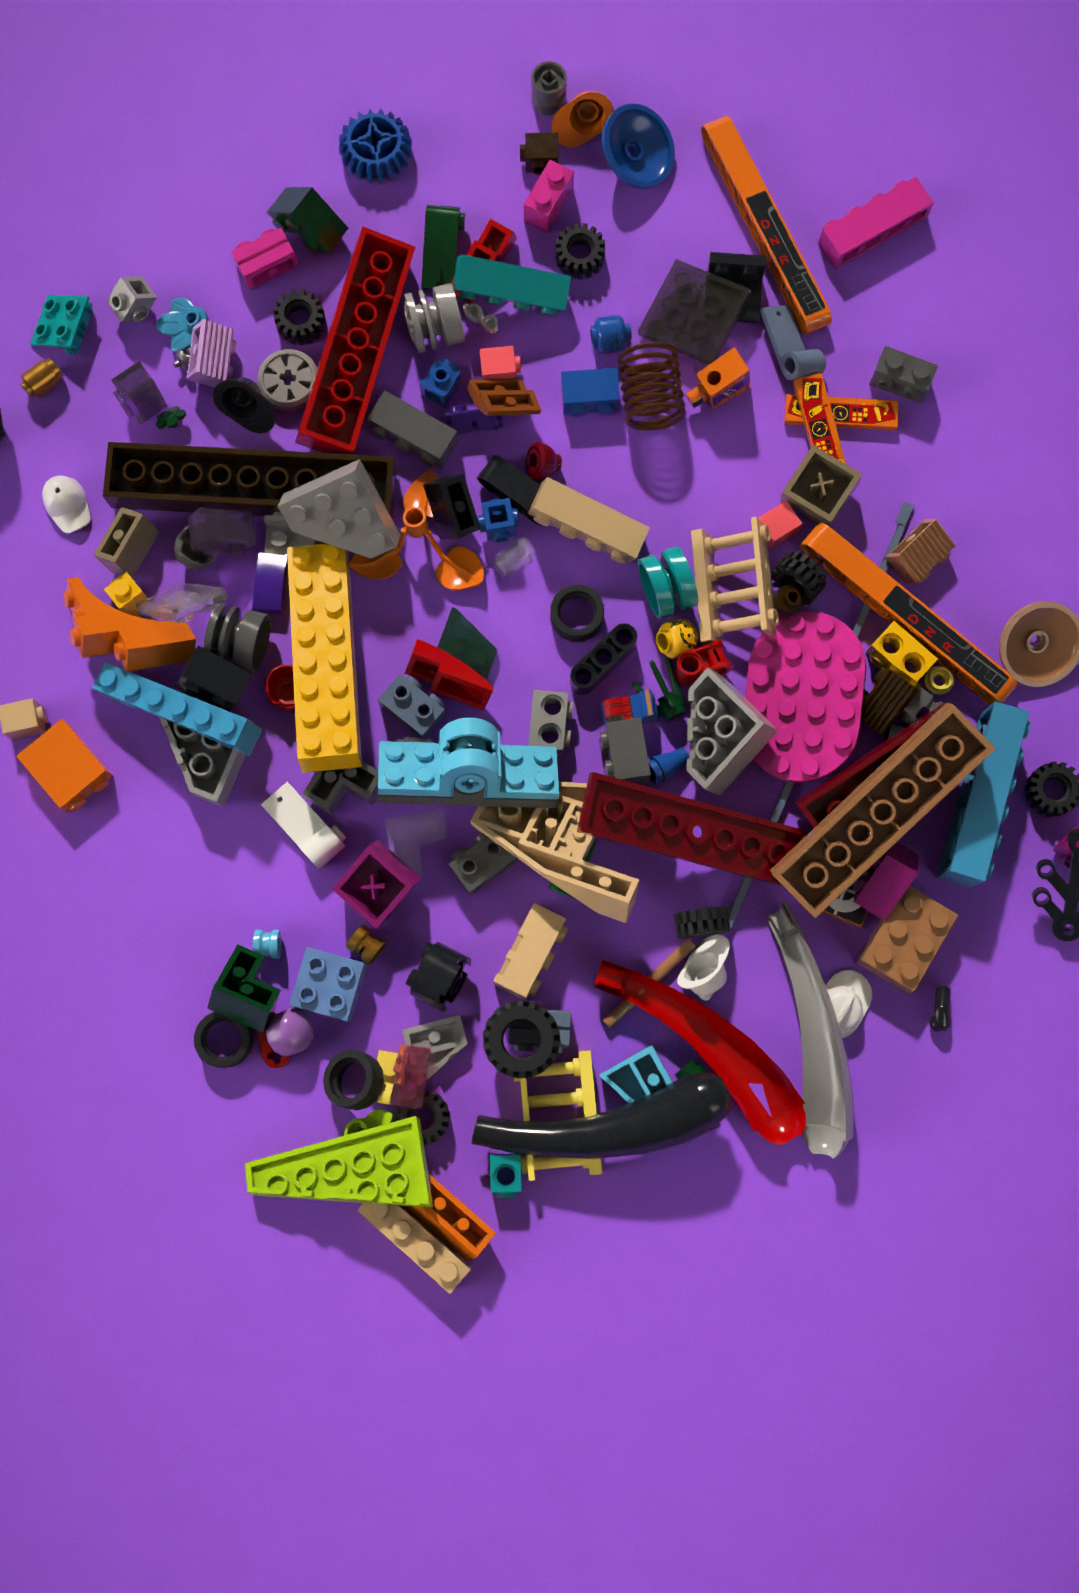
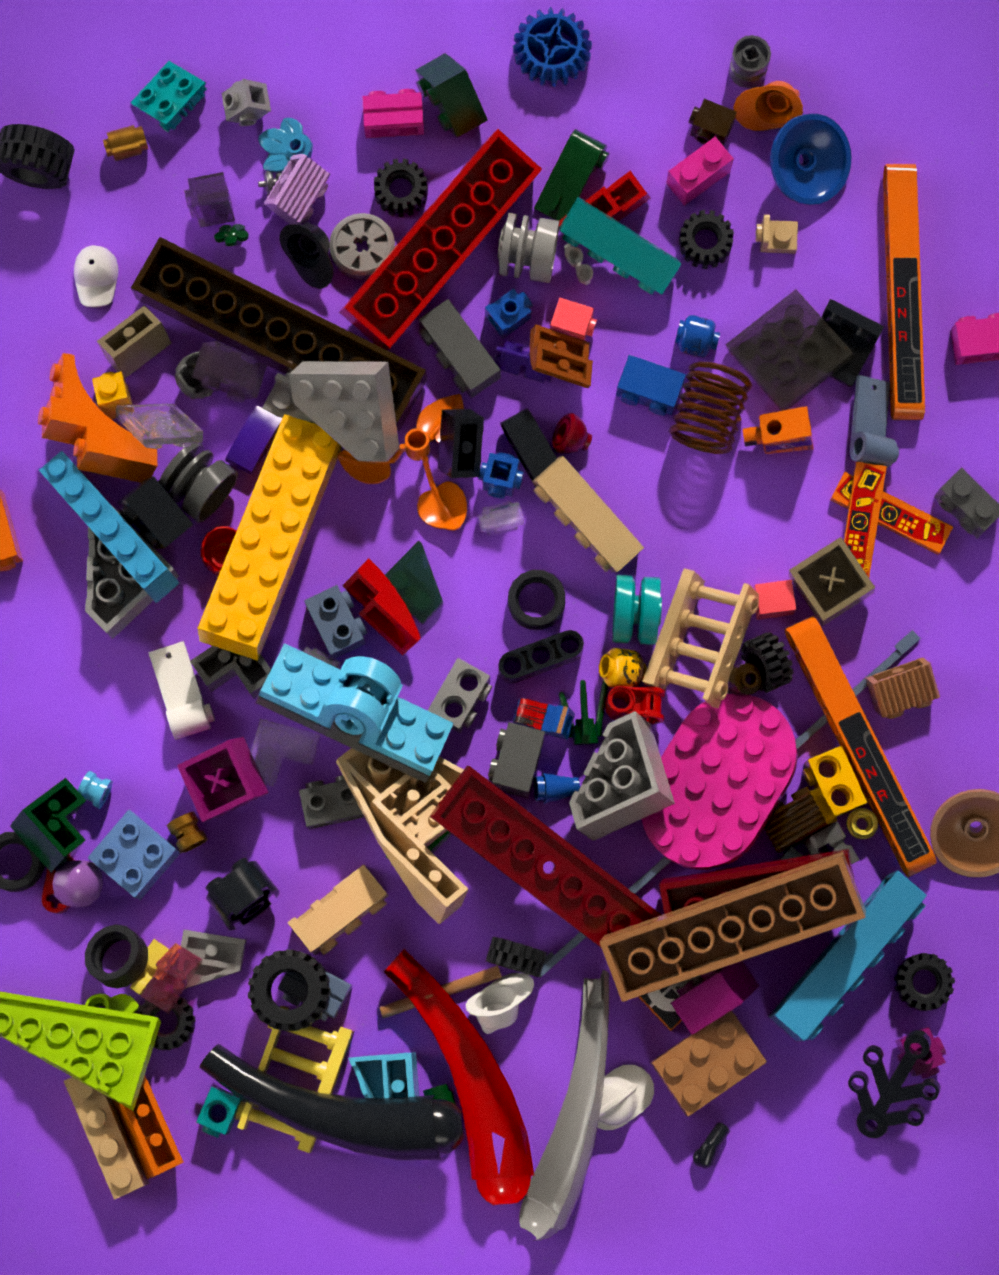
camera: 25 degrees right, 0 degrees up
(638, 224) = (777, 236): none -> tan bracket

